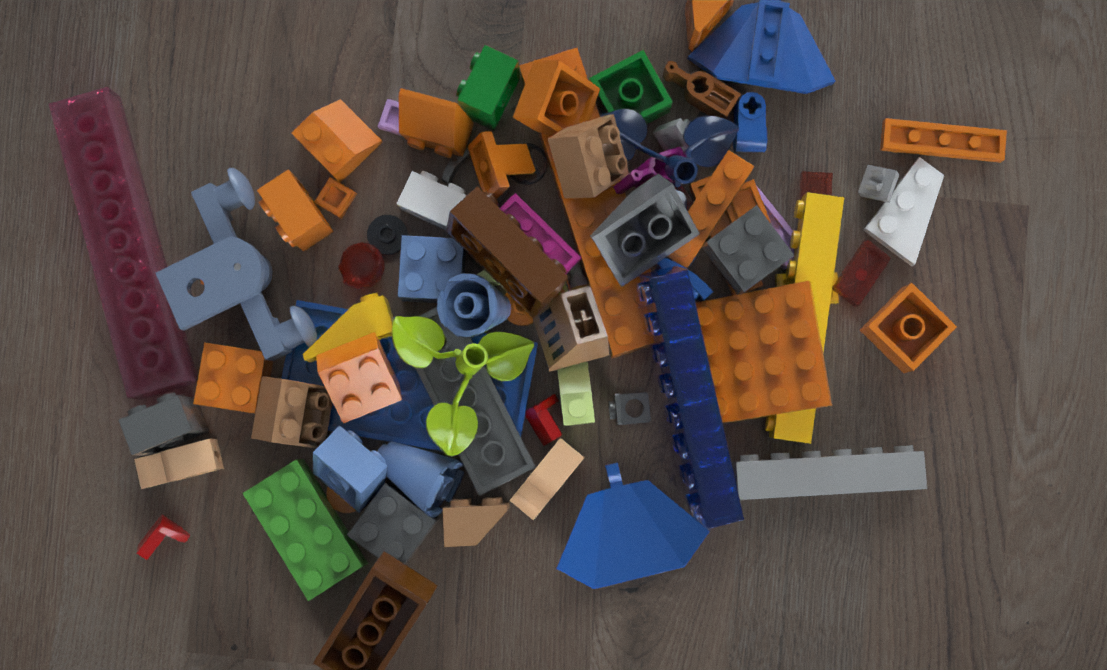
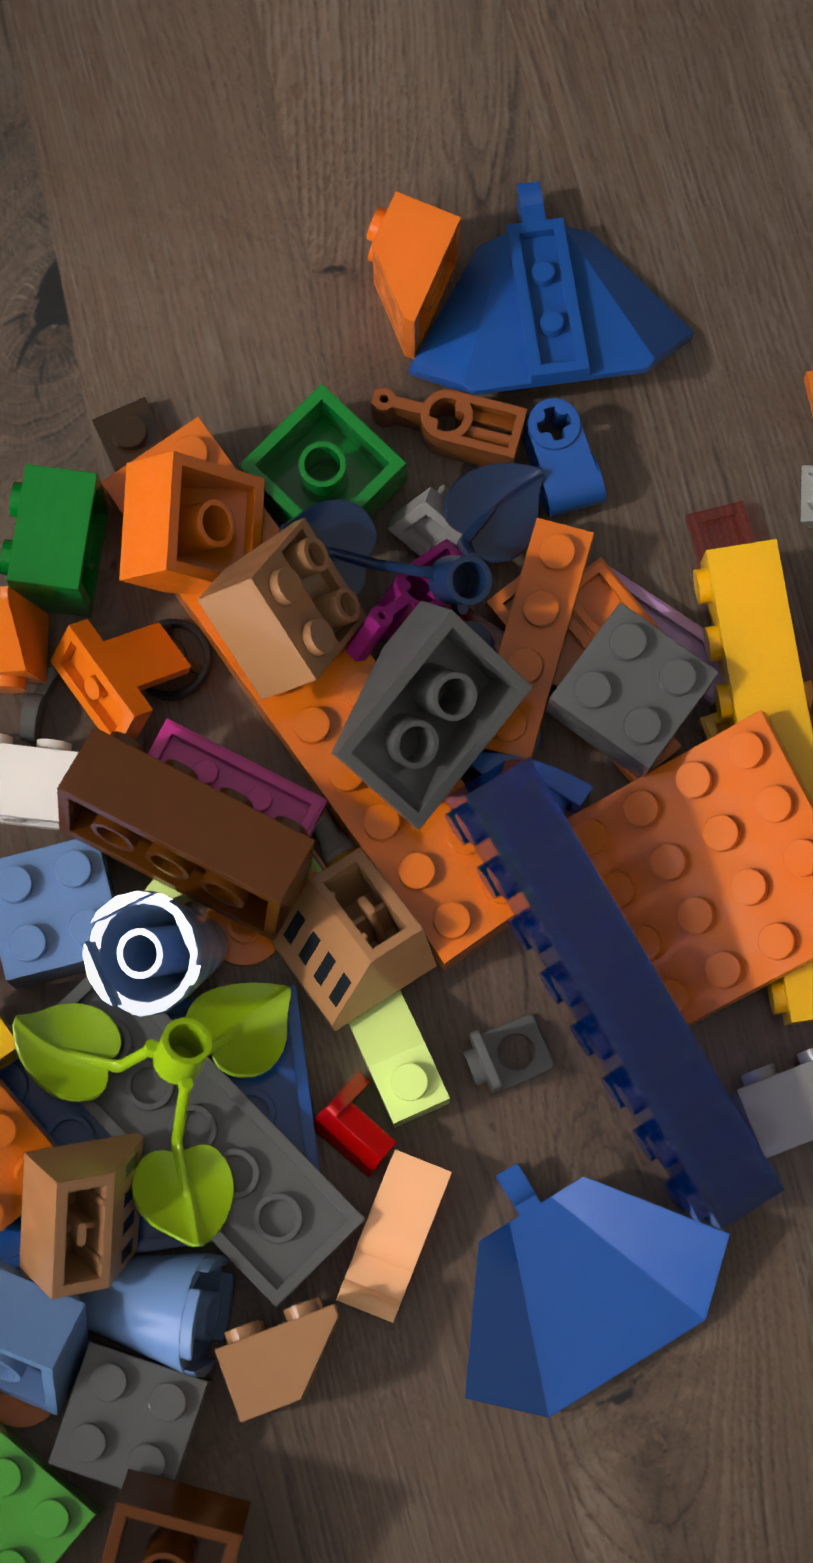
camera: 20 degrees left, 5 degrees down
(397, 422) = (79, 1214): none -> medium nougat slope
(540, 44) = (128, 432): none -> dark brown plate

